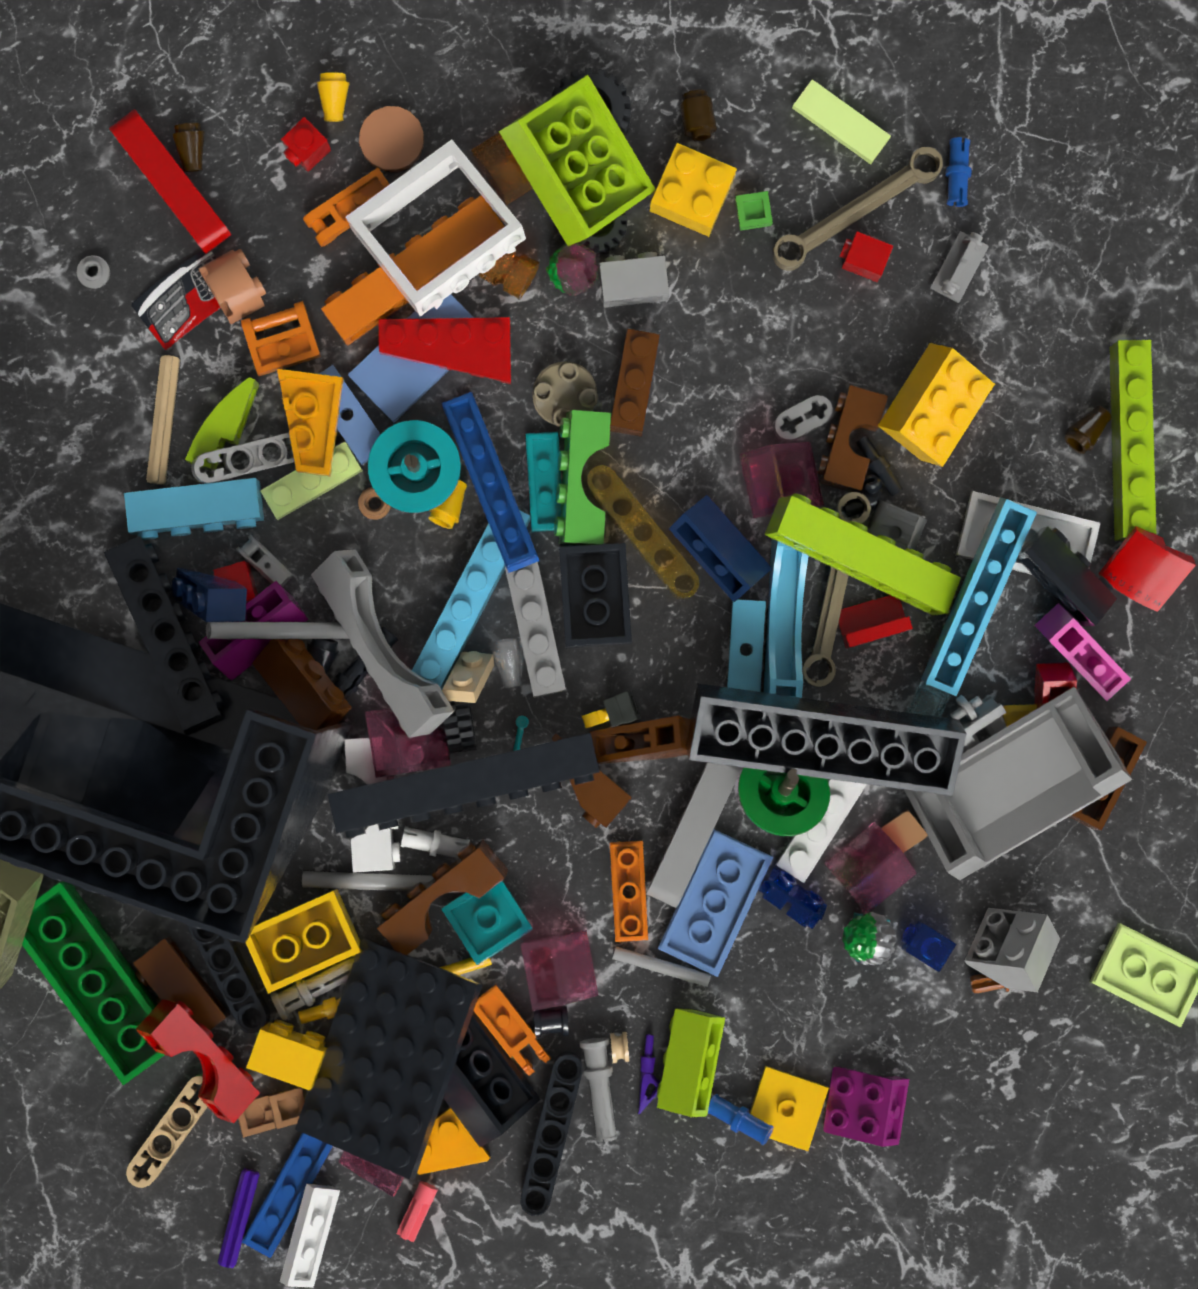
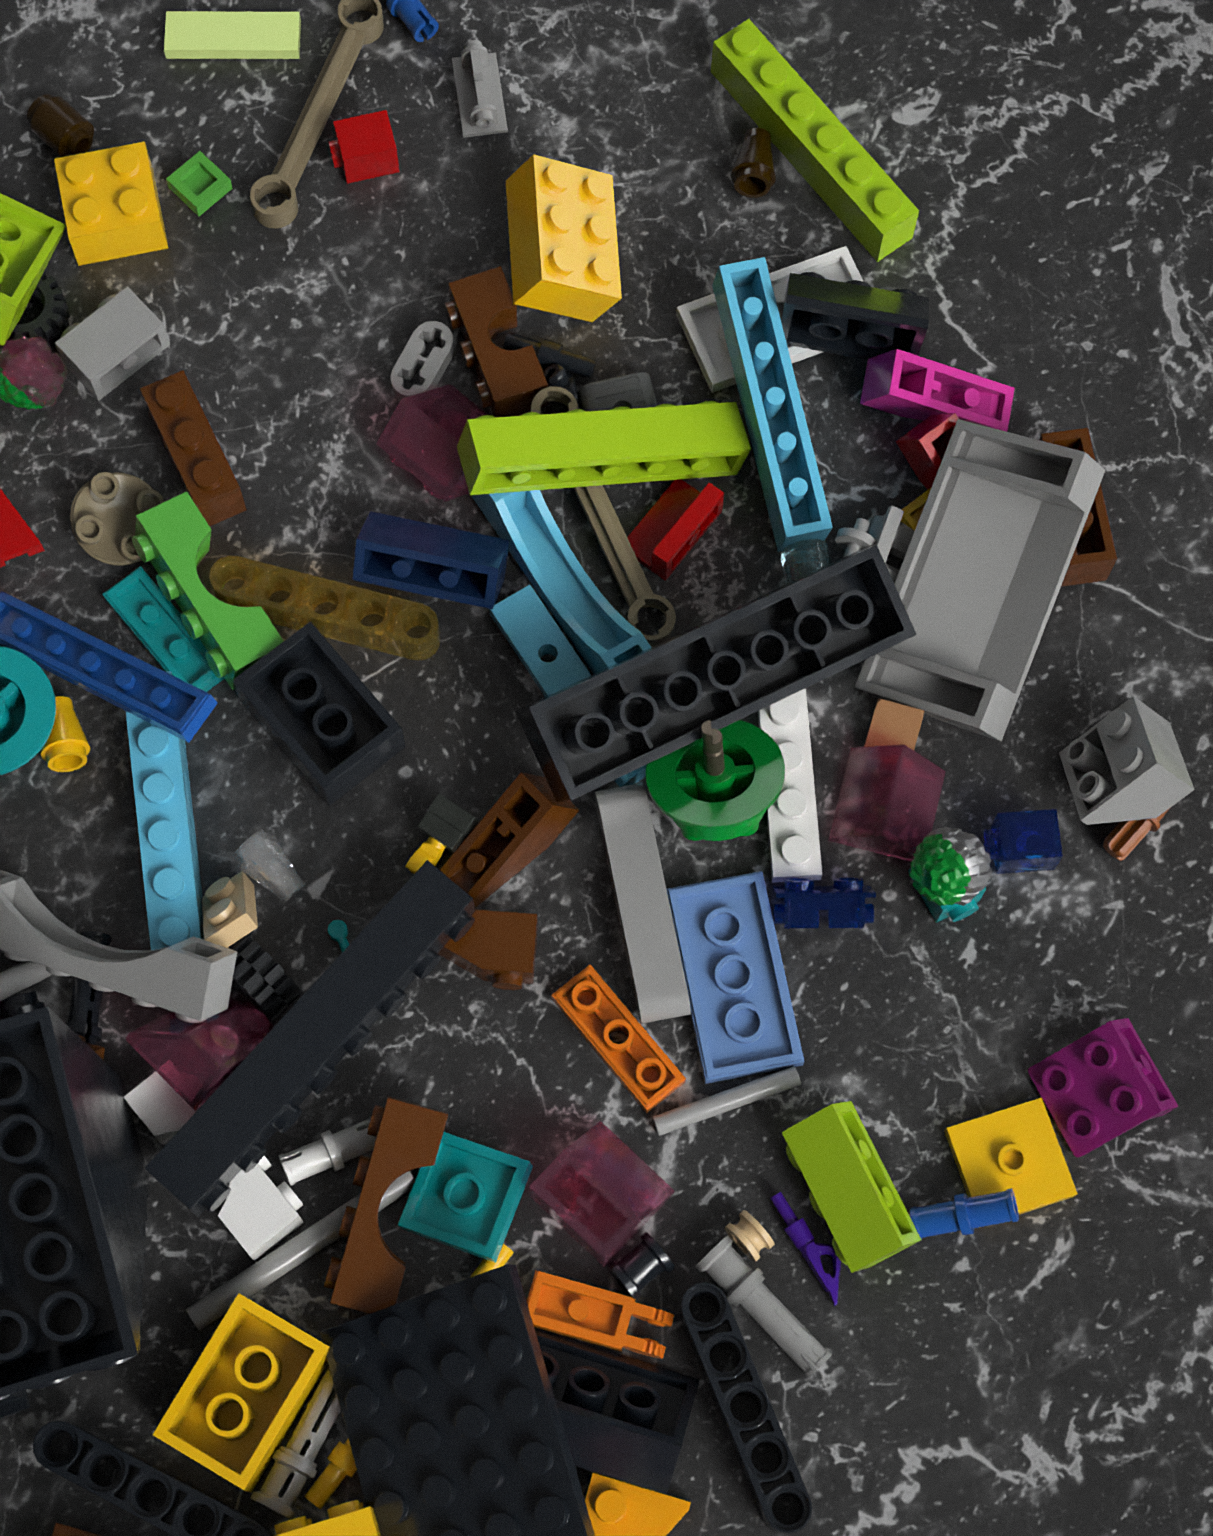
camera: 30 degrees left, 15 degrees down
(536, 630) = (286, 810): light grey arch -> none
(1147, 569) = (938, 252): red slope -> none

